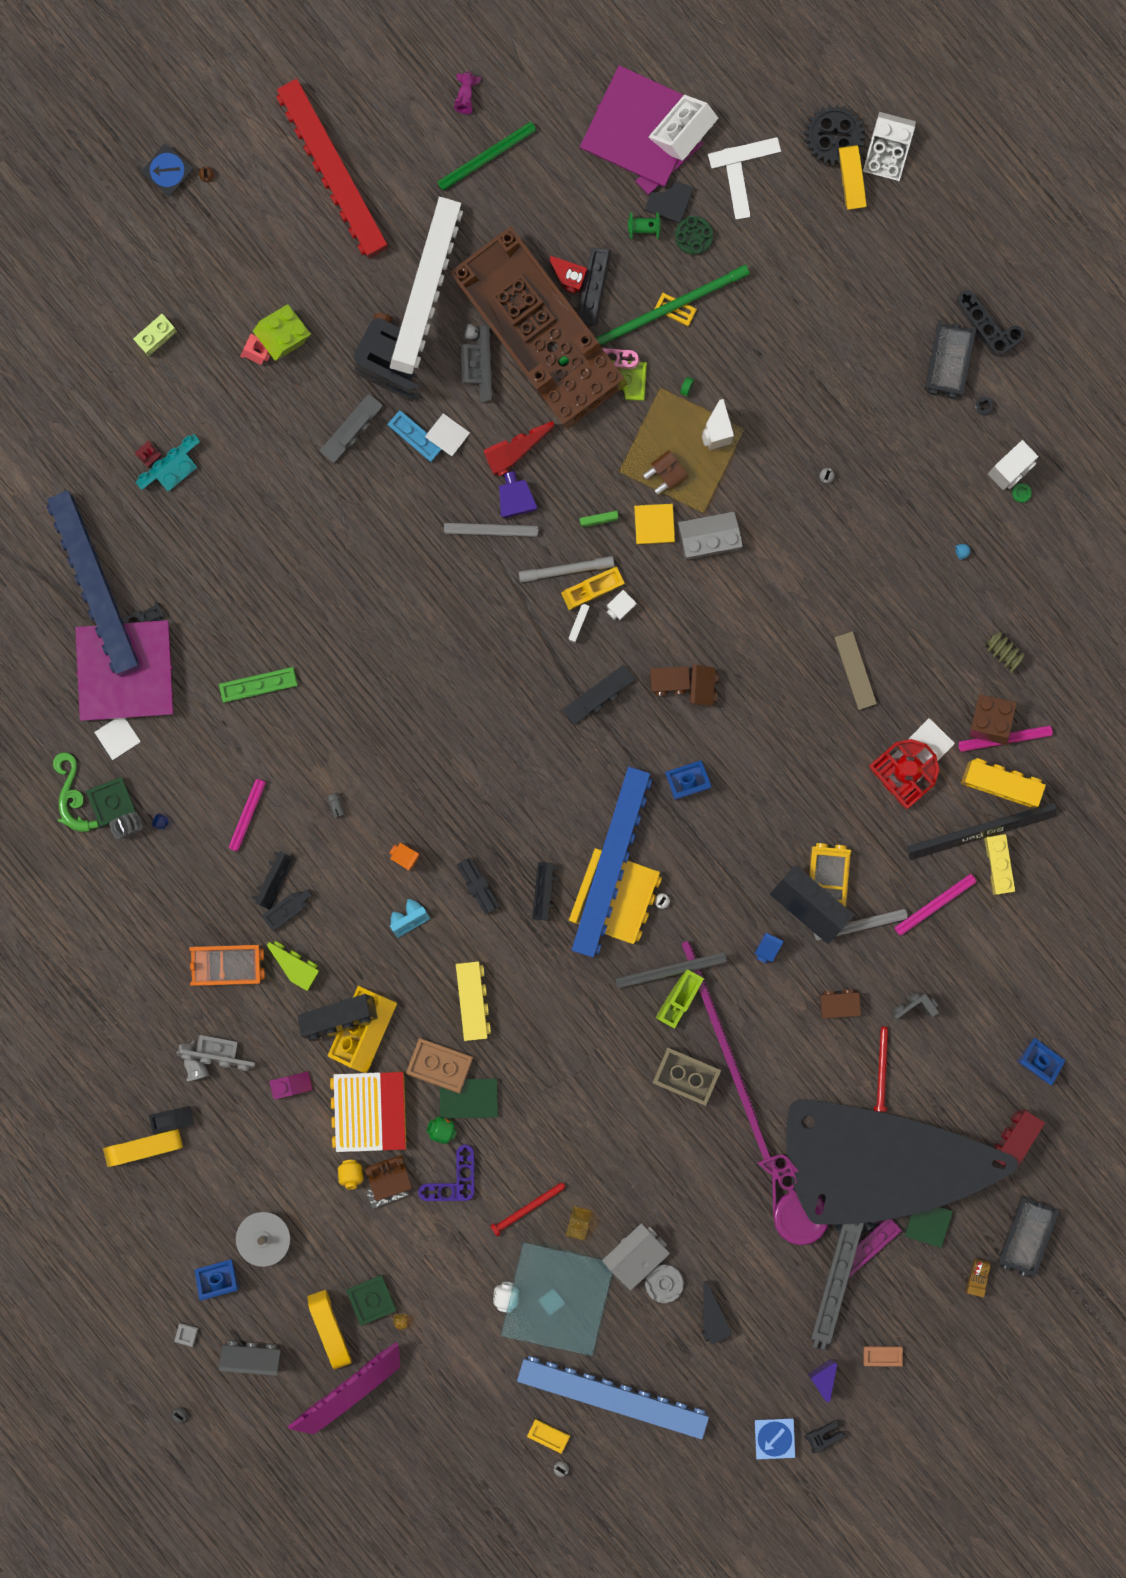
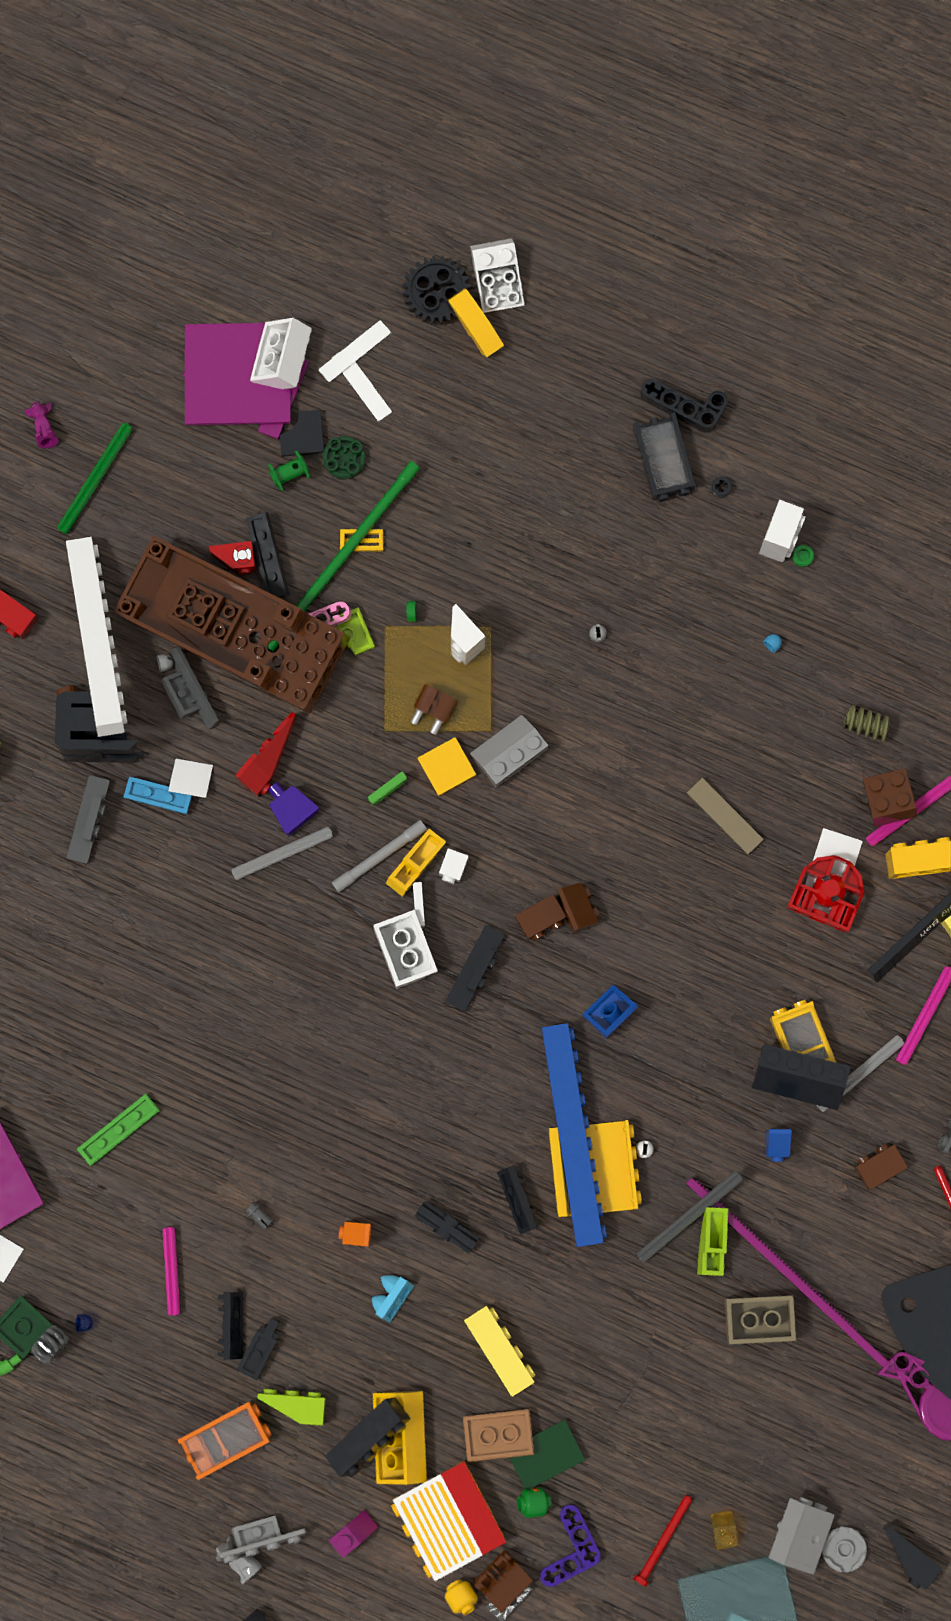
camera: 25 degrees left, 5 degrees down
(550, 652) = (405, 949): none -> white slope

